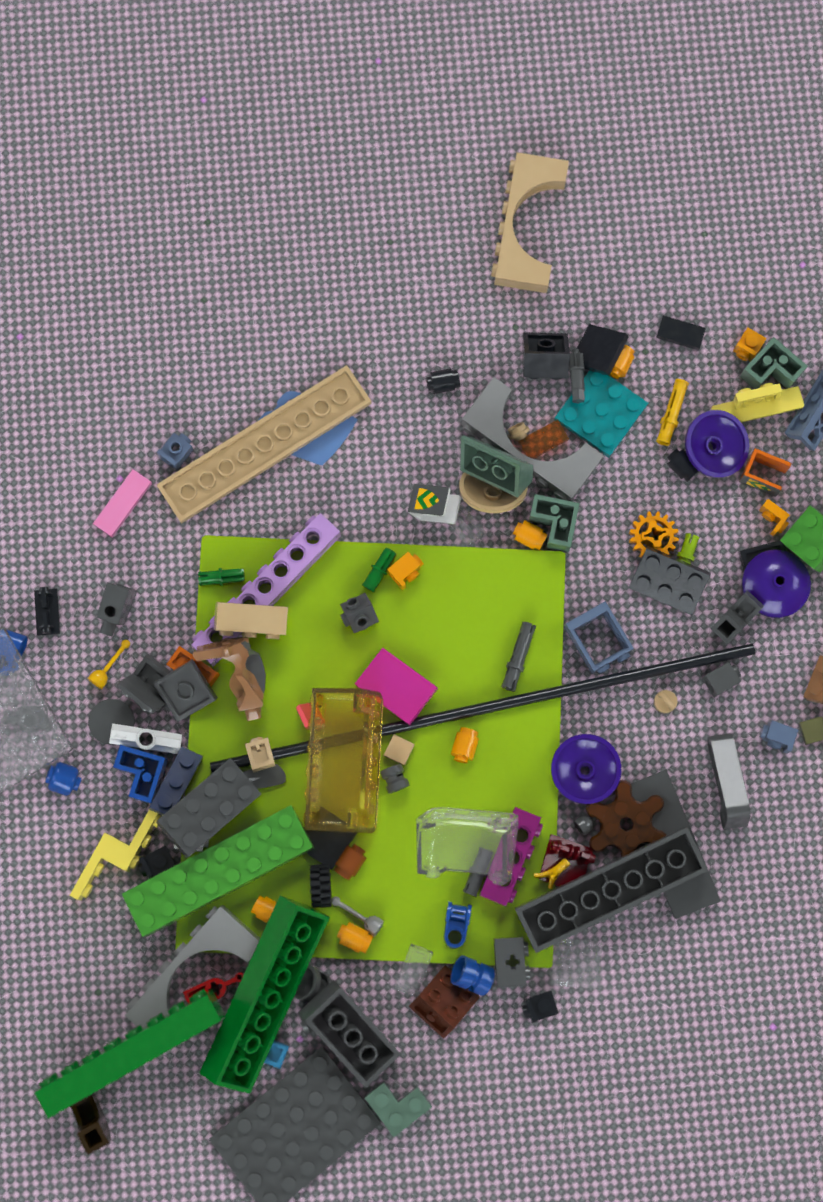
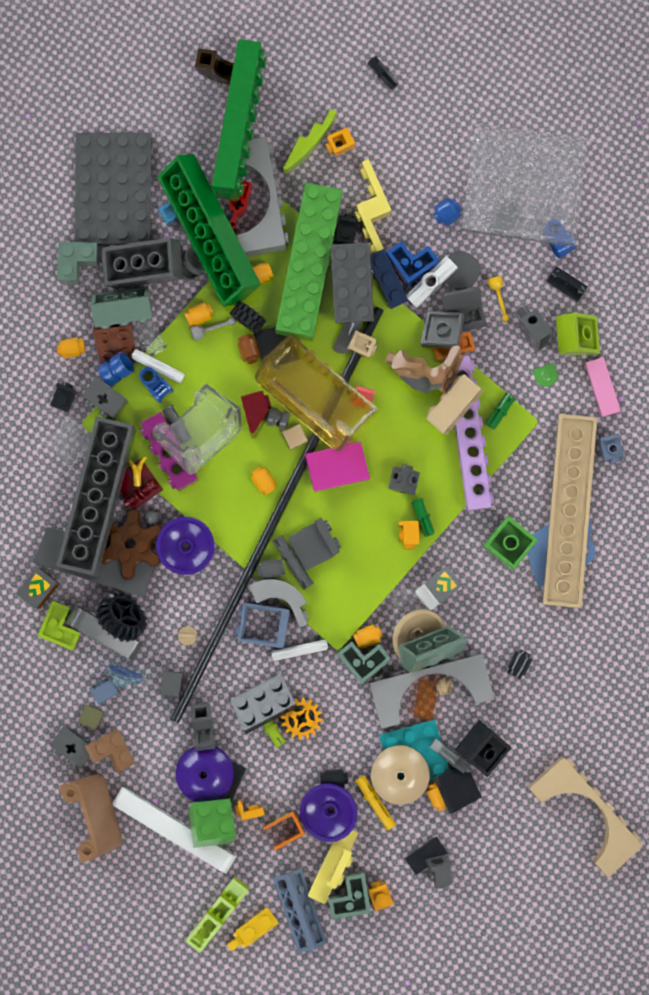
camera: 130 degrees right, 5 degrees up
(65, 936) = (342, 136): none -> light orange brick
(90, 563) = (577, 334): none -> lime slope
(103, 970) = (306, 146): none -> lime slope
(151, 564) = (546, 375): none -> bright green piece
(339, 472) = (510, 543): none -> bright green brick
(406, 803) = (256, 411): none -> dark red slope
(408, 1019) = (121, 307): none -> sand green brick
(436, 937) = (158, 366): none -> white axle
(485, 649) = (315, 544): none -> dark grey bracket
(486, 1039) = (71, 347): none -> light orange brick
(542, 671) = (271, 569): none -> dark grey brick
(555, 650) = (272, 588): none -> light grey arch
(593, 587) = (299, 650): none -> white axle
(629, 422) = (397, 760): none -> tan dish
(685, 308) = (439, 871): none -> dark grey brick
(702, 773) = (121, 617): none -> black gear
(739, 876) = (38, 588): none -> piece
(751, 726) = (124, 676): none -> clear light blue piece
(764, 829) = (54, 629): none -> lime plate

